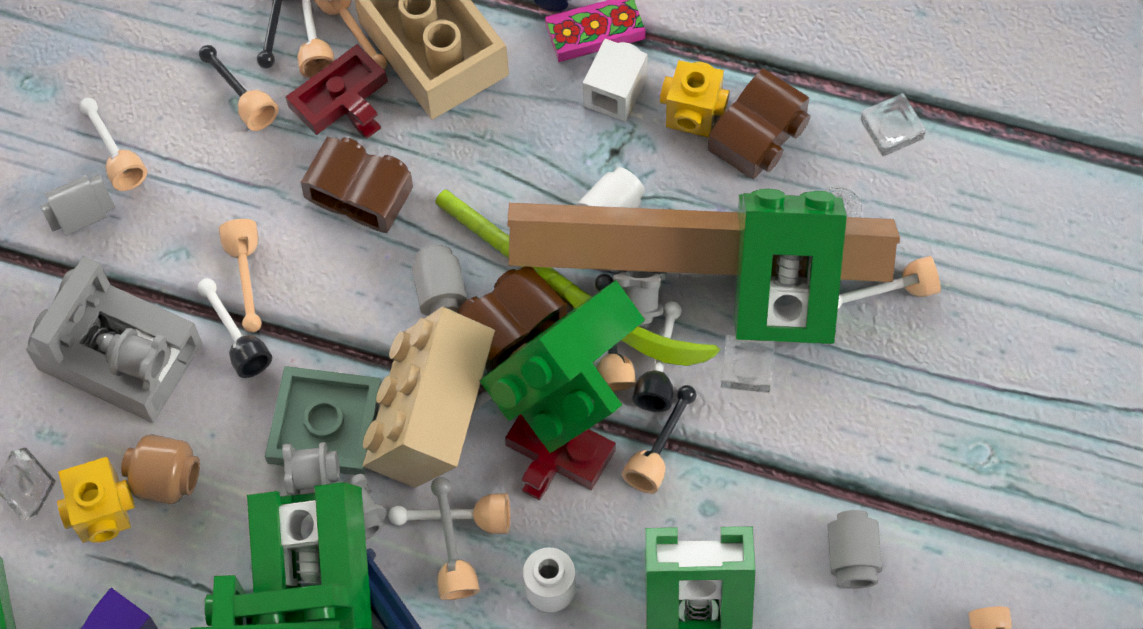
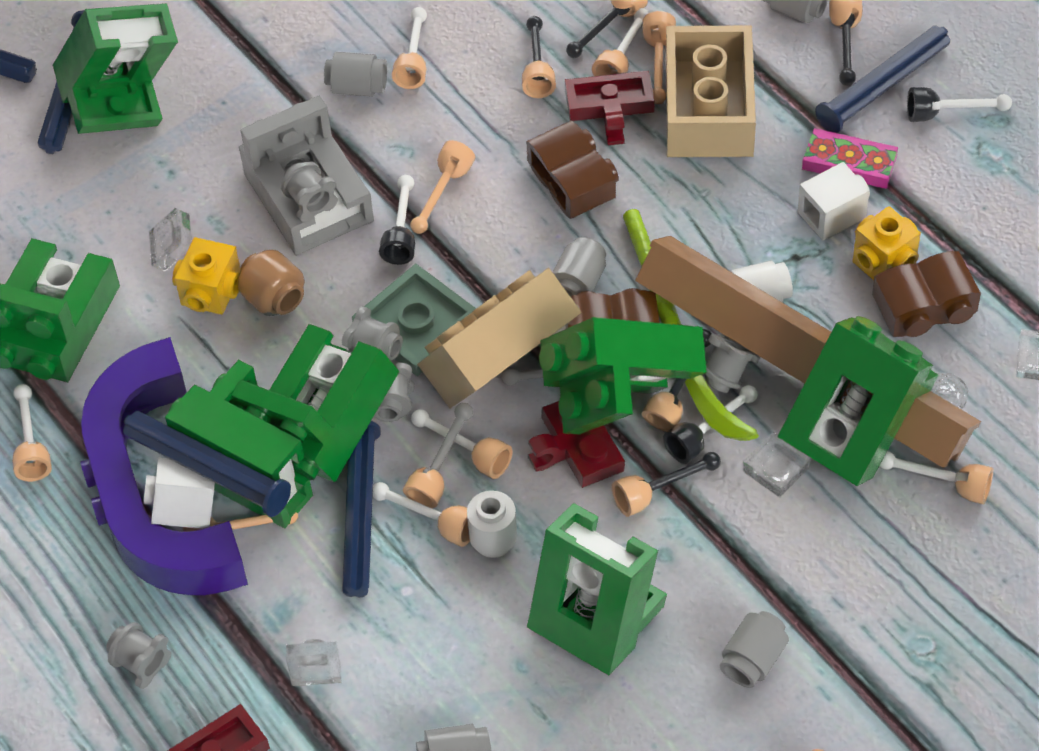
camera: 35 degrees right, 10 degrees down
(508, 601) = (451, 521): none -> hinge

